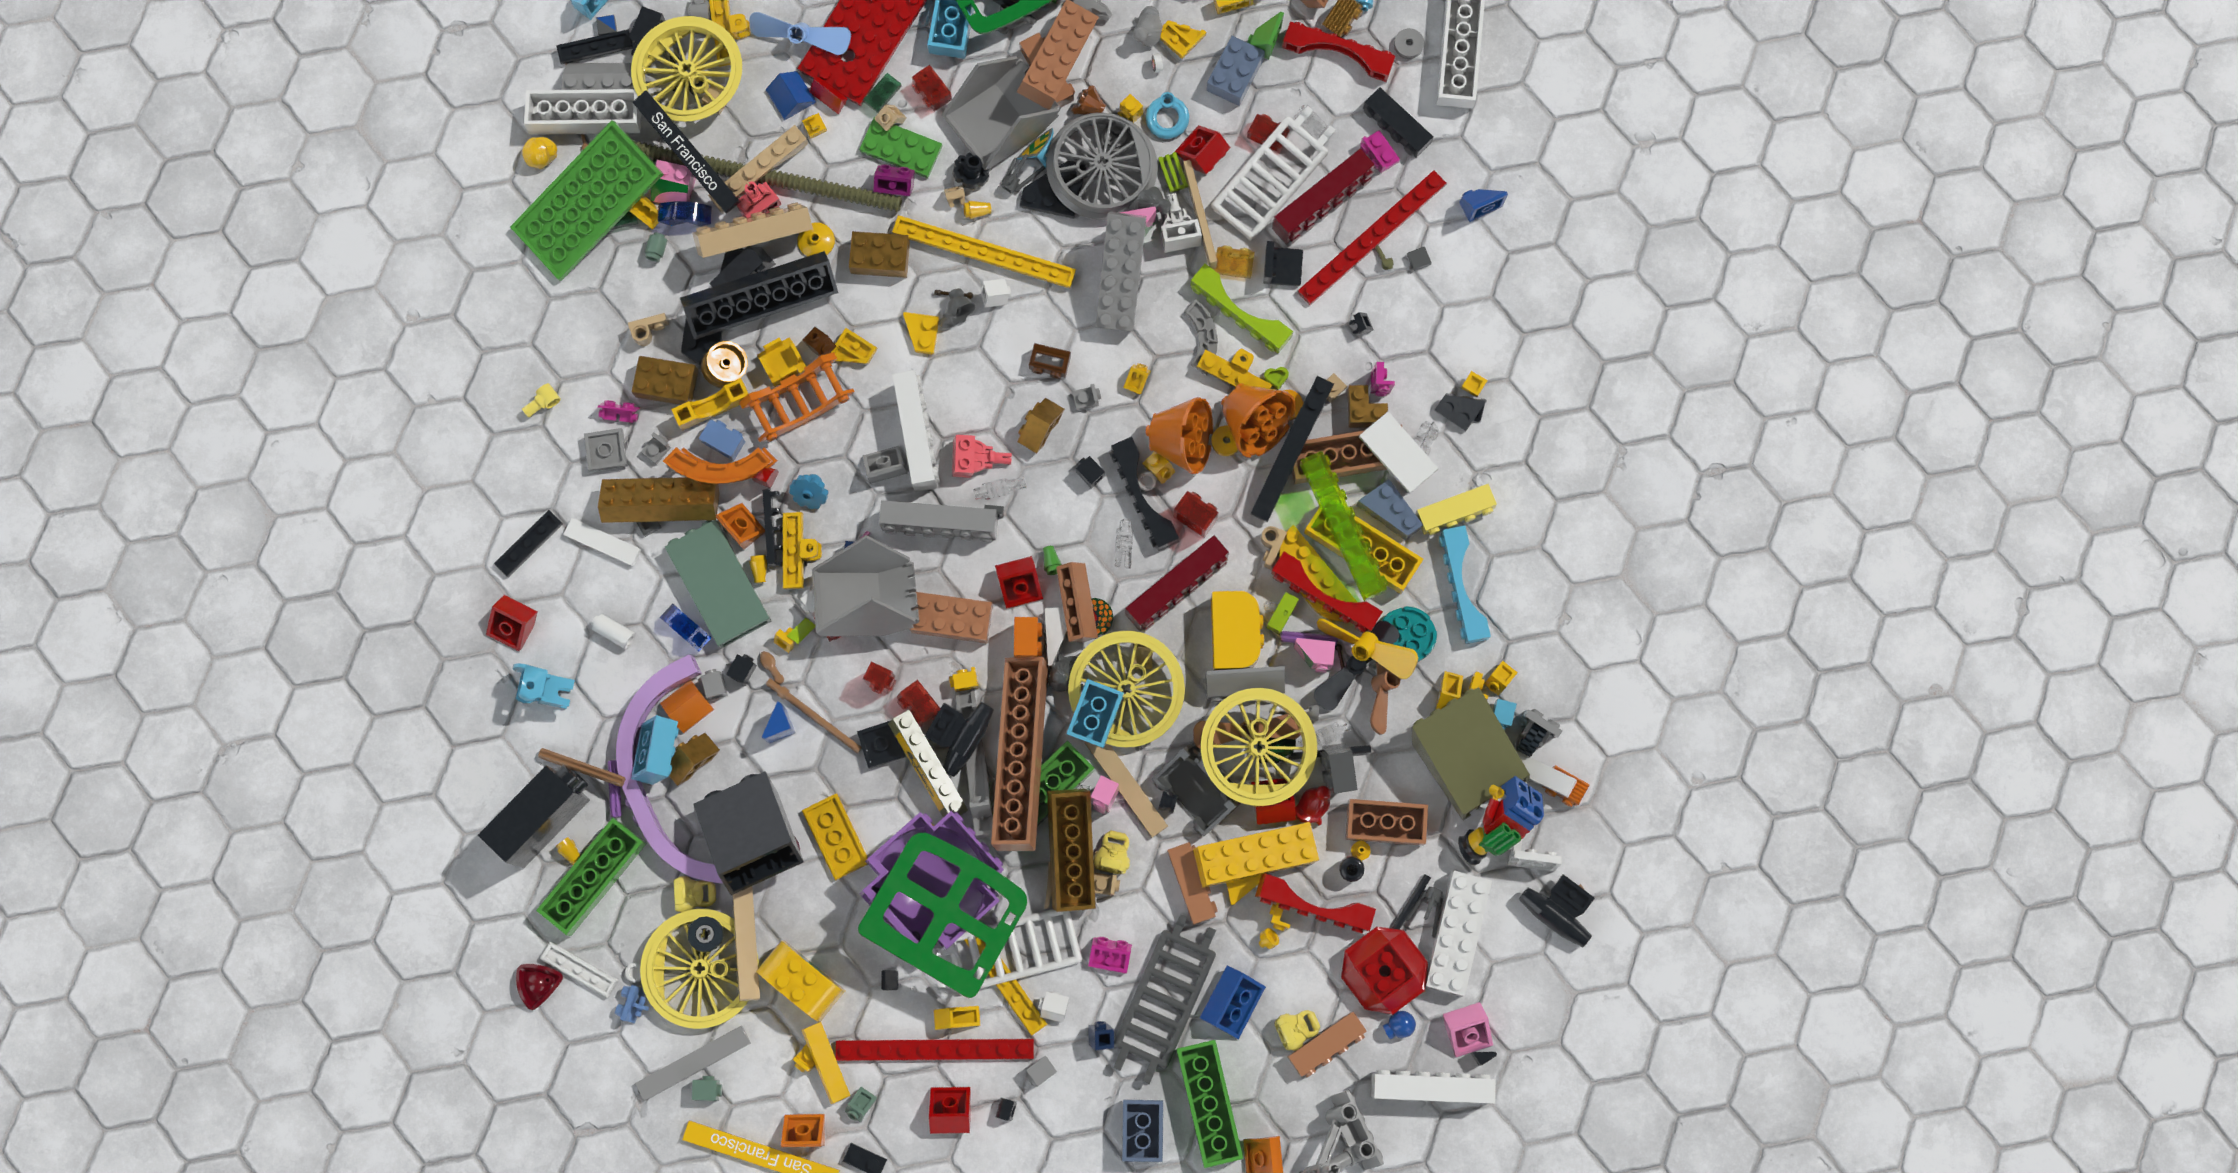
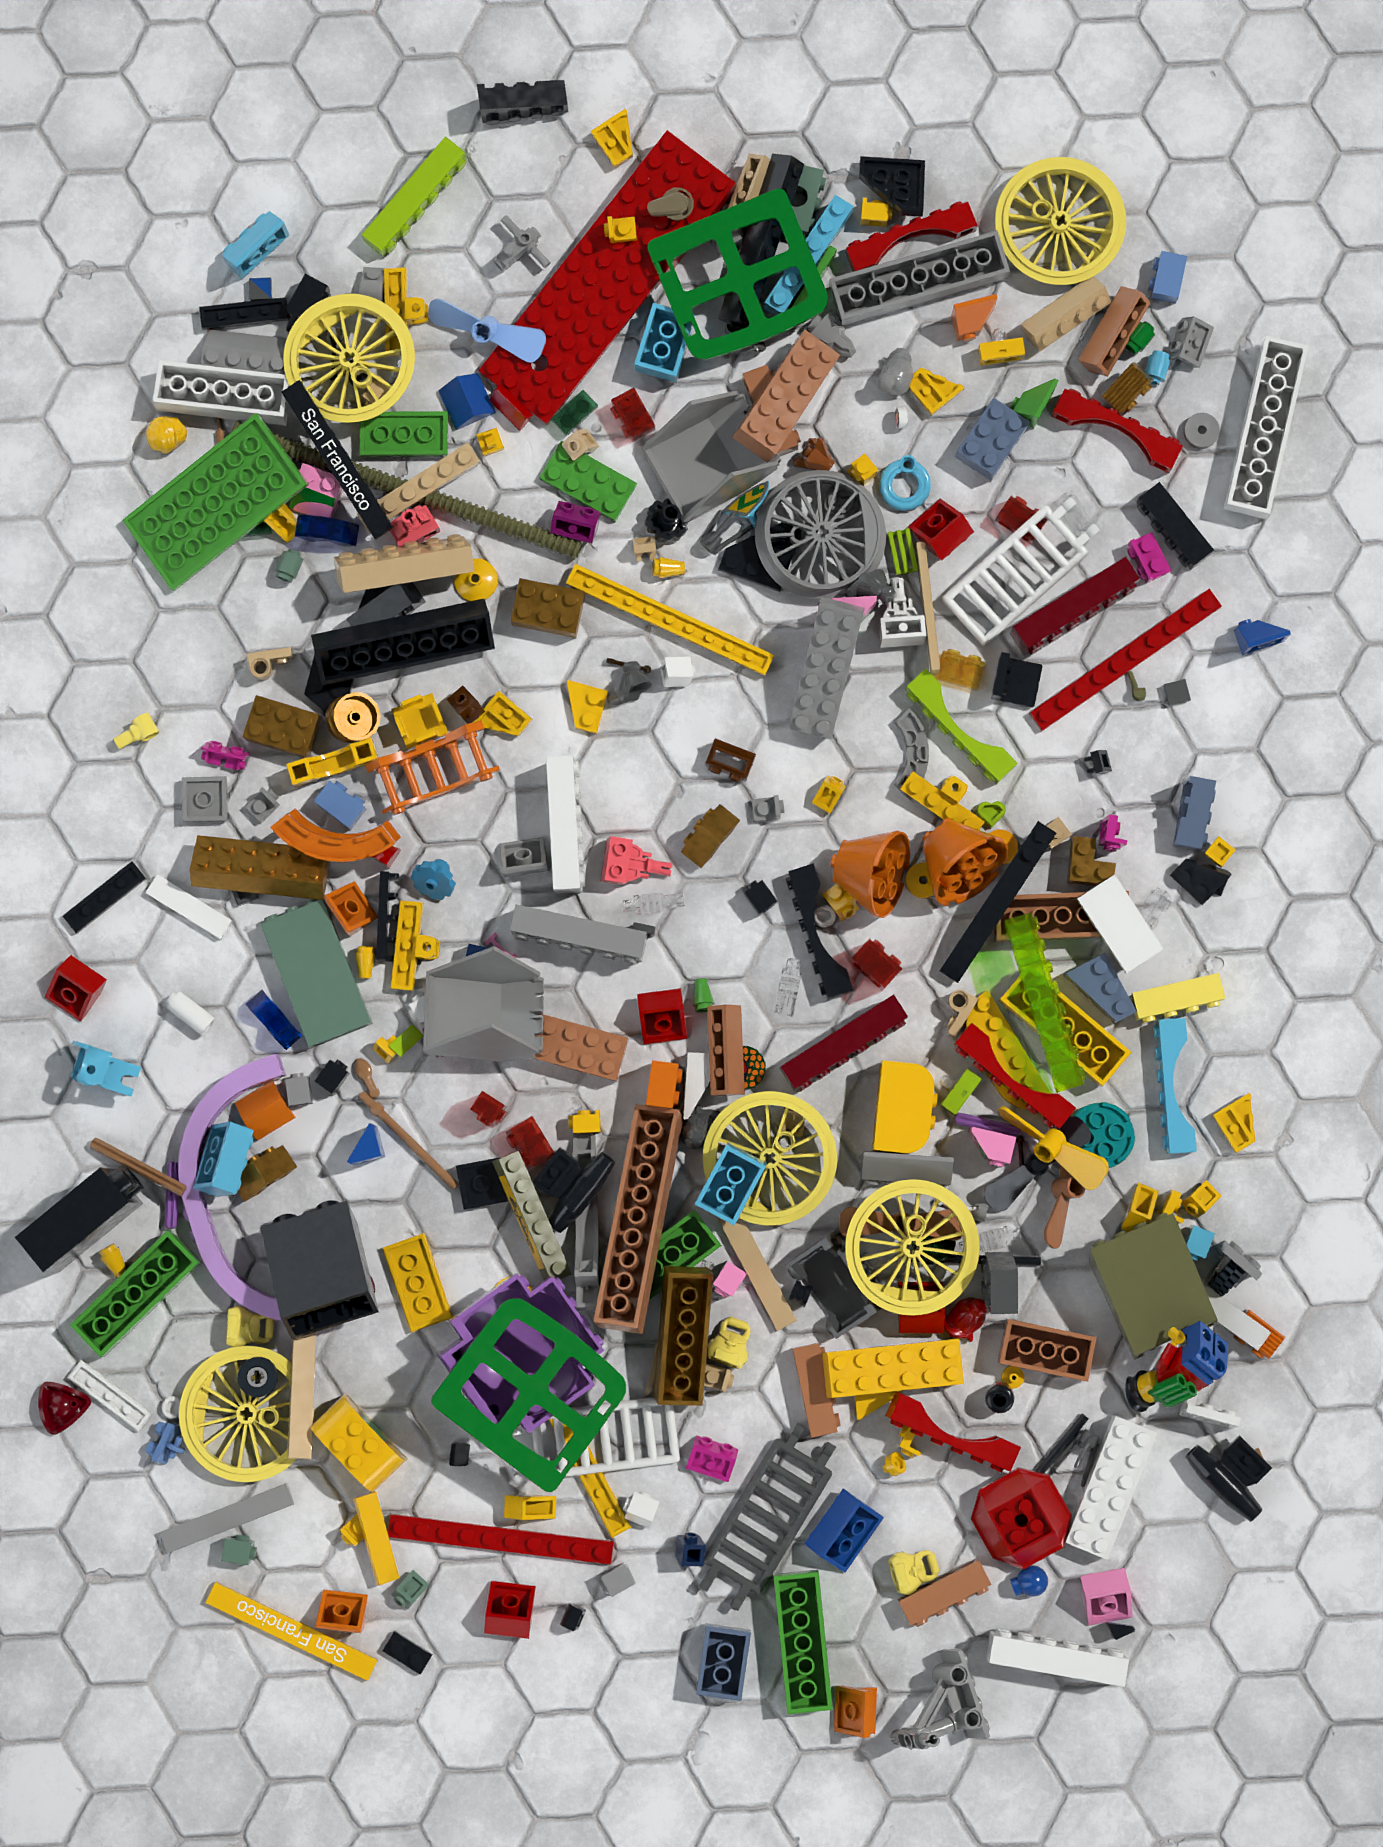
camera: 10 degrees right, 5 degrees up
(741, 127) = (405, 434): none -> bright green plate
(1448, 354) = (1194, 813): none -> sand blue wedge
(1521, 609) = (1237, 1123): none -> yellow wing

